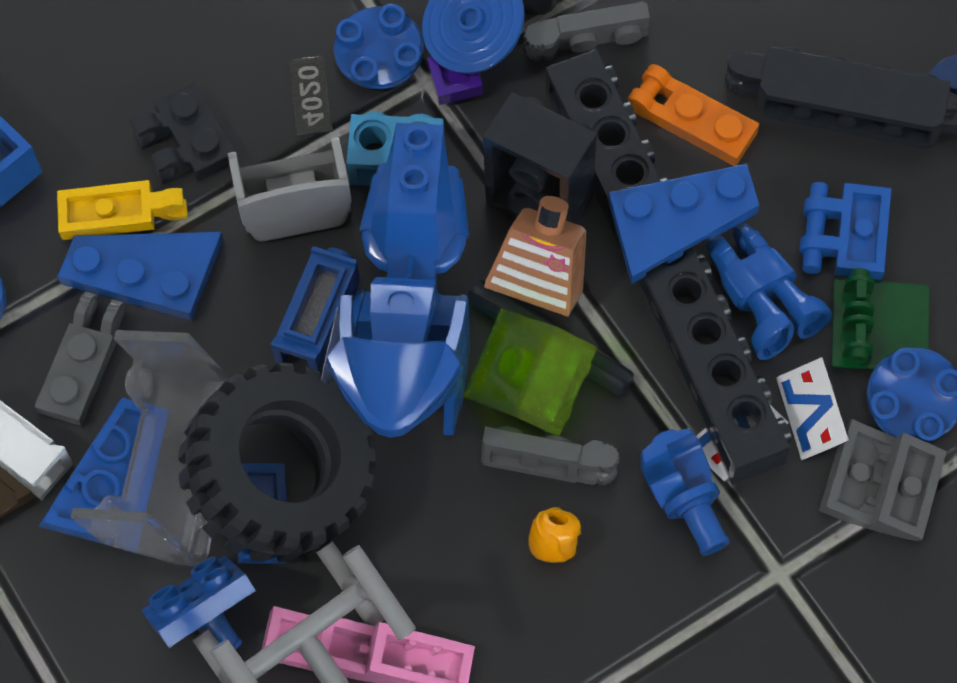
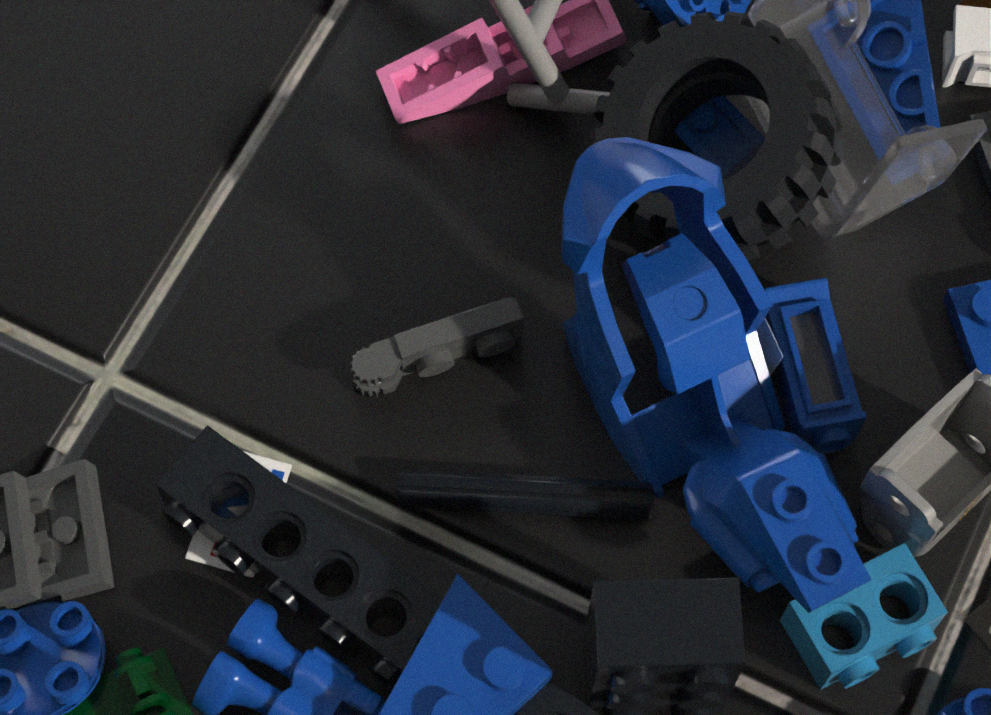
camera: 145 degrees right, 0 degrees up
(530, 371) = (514, 416): clear neon green slope -> none
(542, 258) = (581, 549): nougat torso -> none
(554, 535) = (378, 280): light orange piece -> none
(684, 485) = (260, 390): blue piece -> none
(812, 408) = (161, 577): white sticker -> none

